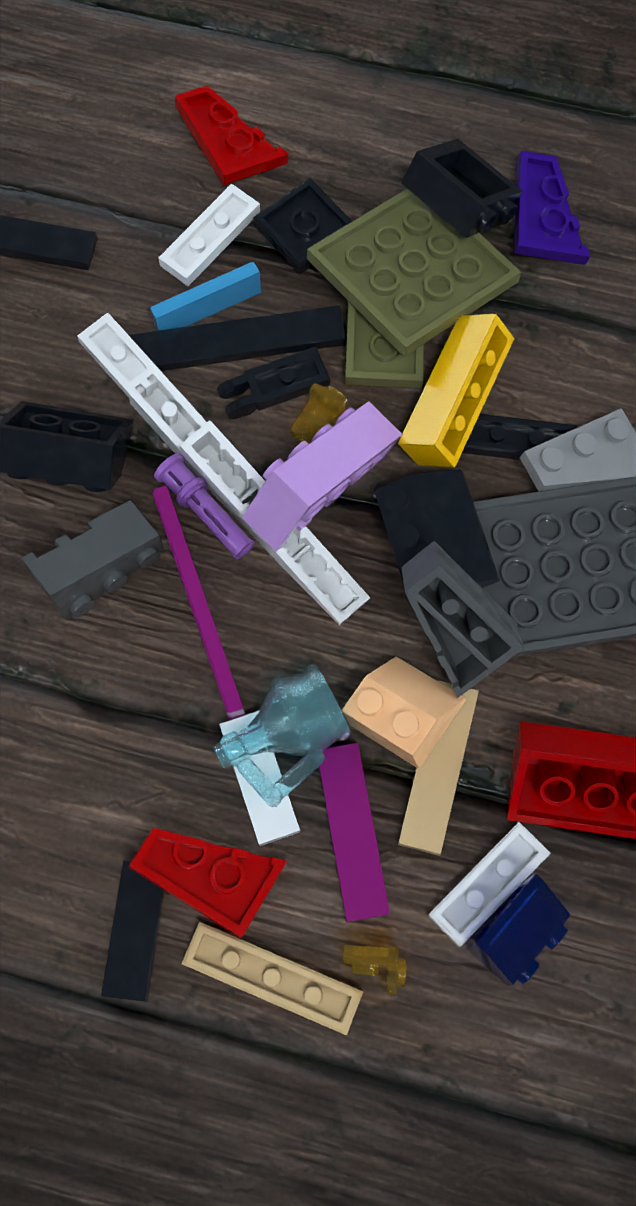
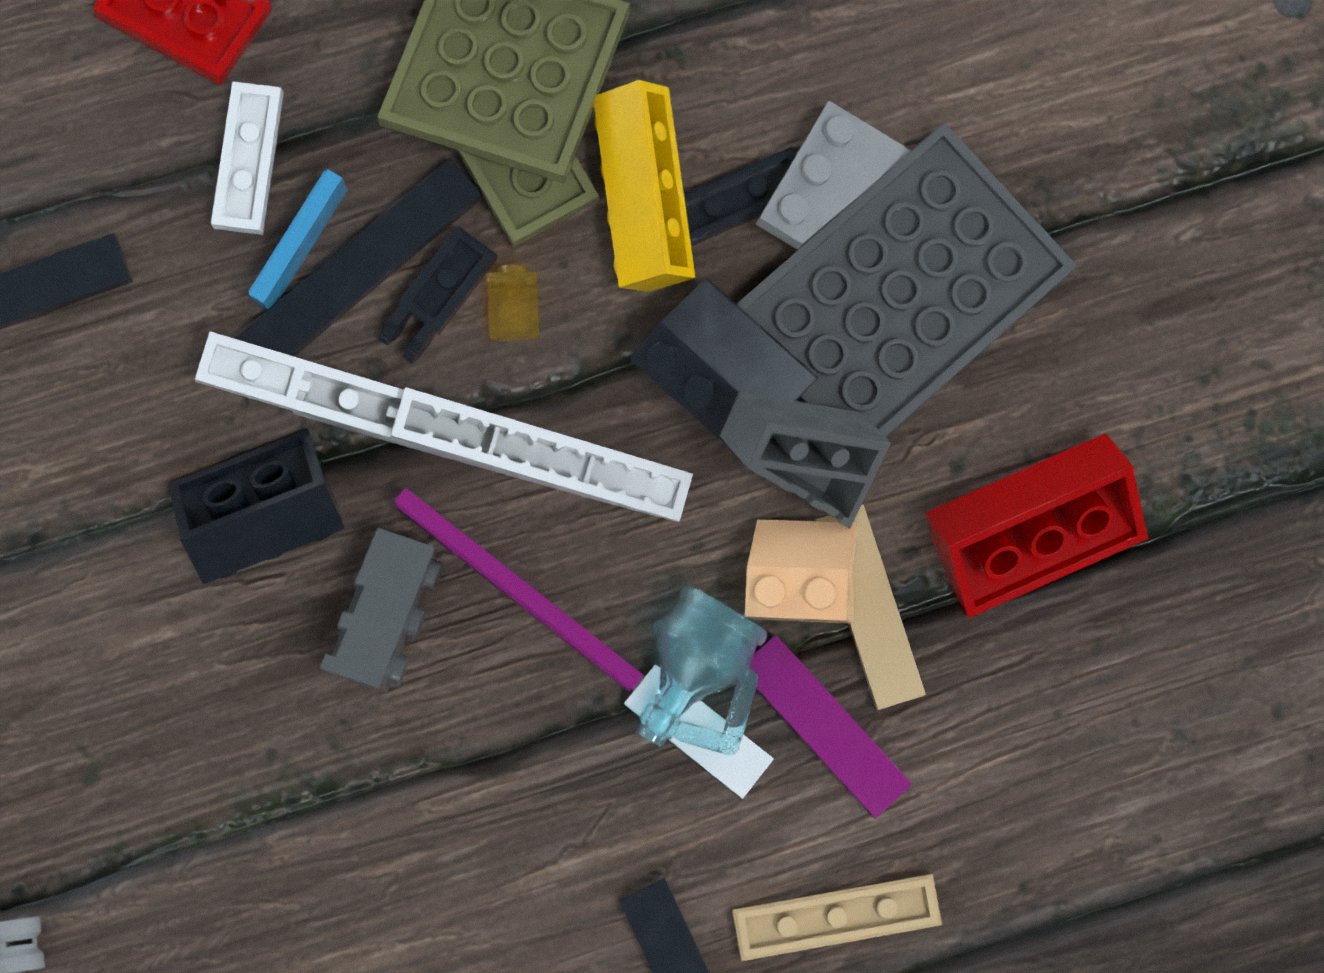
camera: 40 degrees left, 10 degrees up
(193, 493) = (433, 475): medium lavender pin -> none
(210, 878) = (715, 863): red wing -> none
(300, 222) = (344, 81): black plate -> none
(319, 473) = (563, 374): lavender wedge -> none
(368, 959) = (918, 842): clear yellow bracket -> none
(488, 884) = (989, 693): white tile -> none
(521, 931) = (1048, 723): clear blue slope -> none

